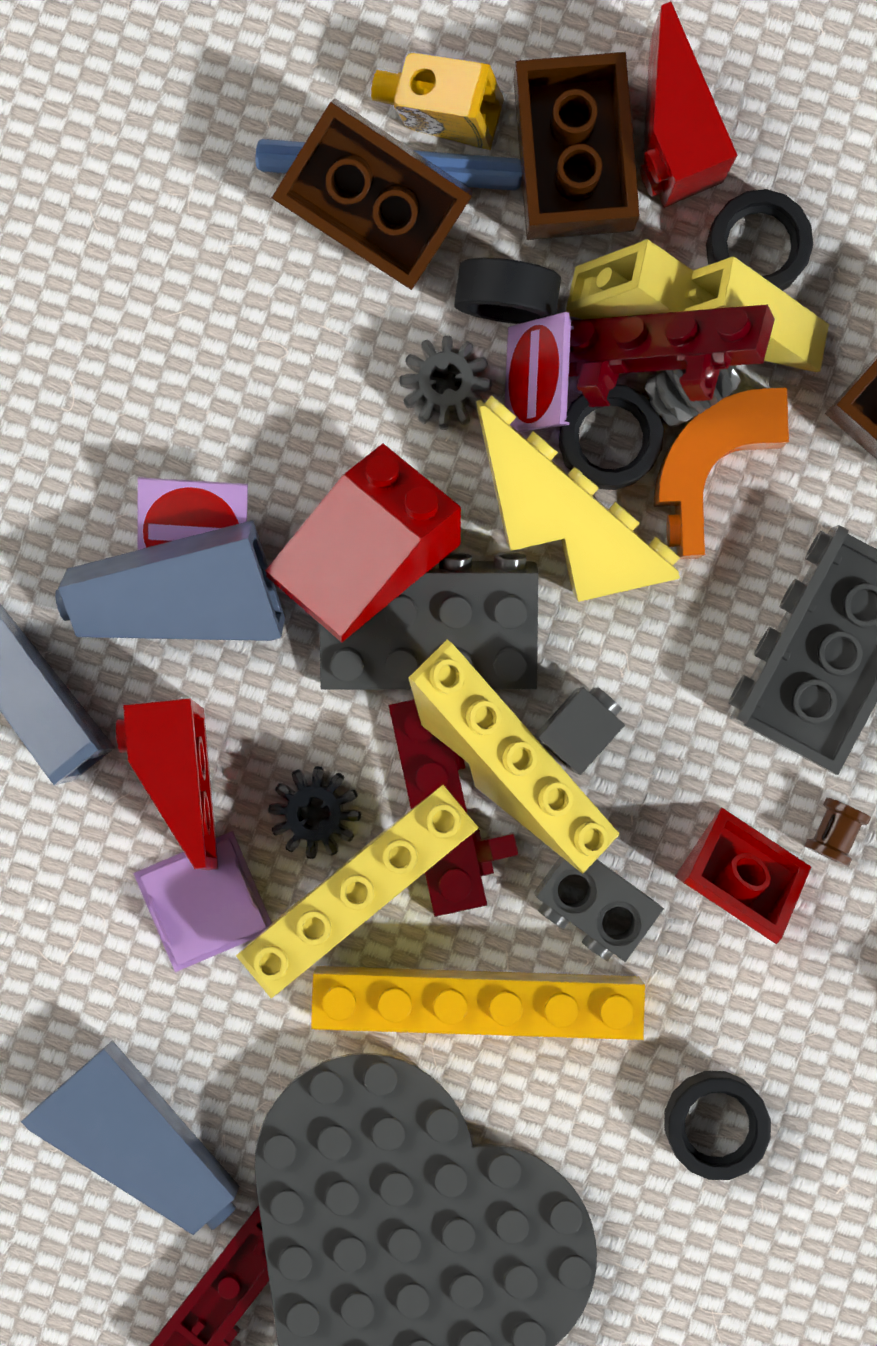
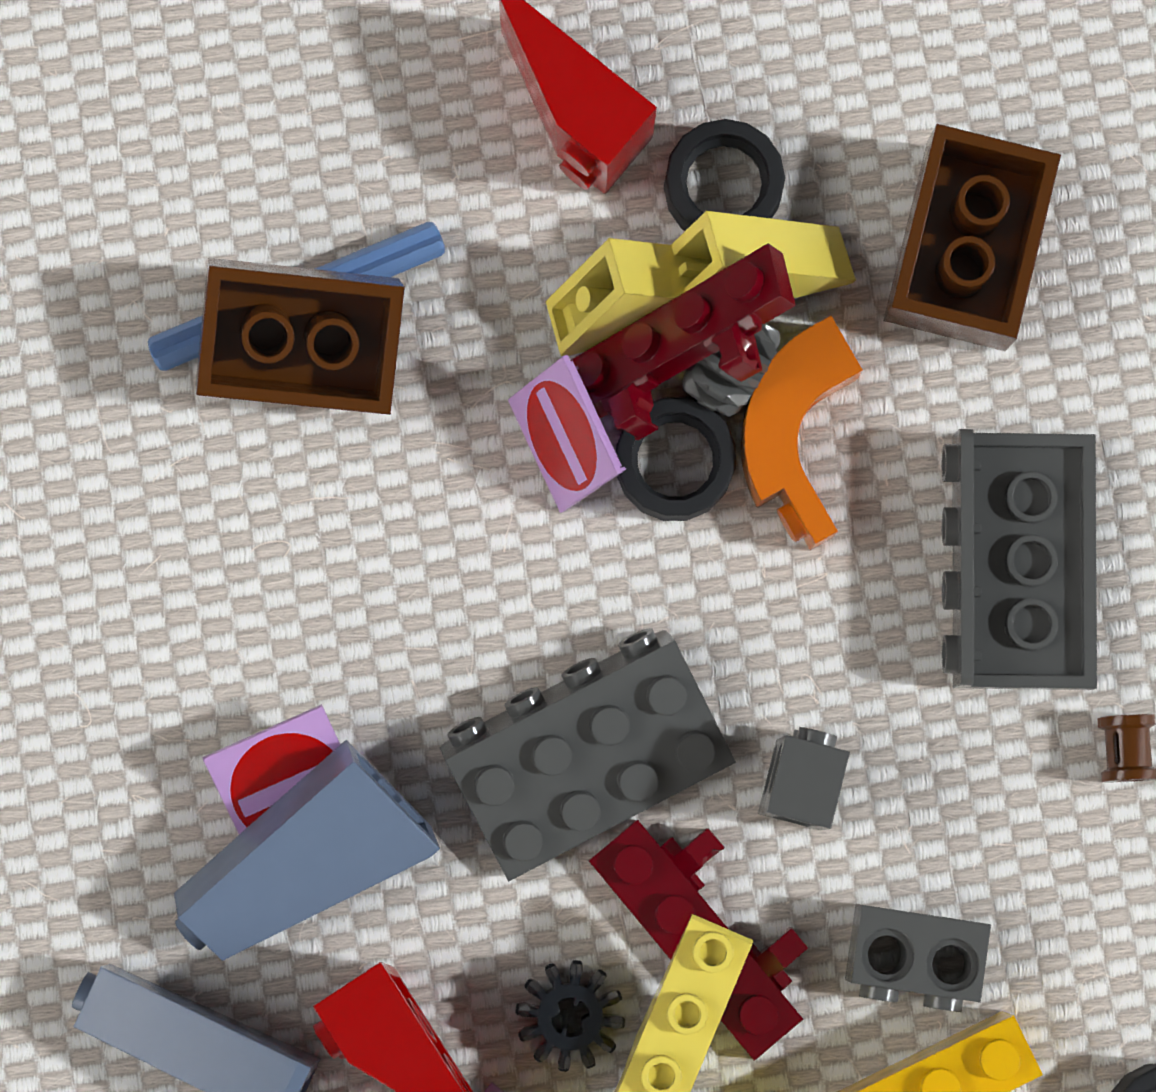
camera: 35 degrees left, 5 degrees down
(366, 542) = (479, 702): slope -> none
(440, 365) = (458, 476): dark grey gear -> none
(443, 98) = (340, 193): yellow torso -> none
(506, 290) = (489, 364): black tyre -> none
(507, 758) = (745, 852): light yellow slope -> none
(548, 505) = (647, 563): light yellow slope -> none
(576, 145) = (483, 179): reddish brown brick -> none
(745, 874) = (1057, 843): red slope -> none

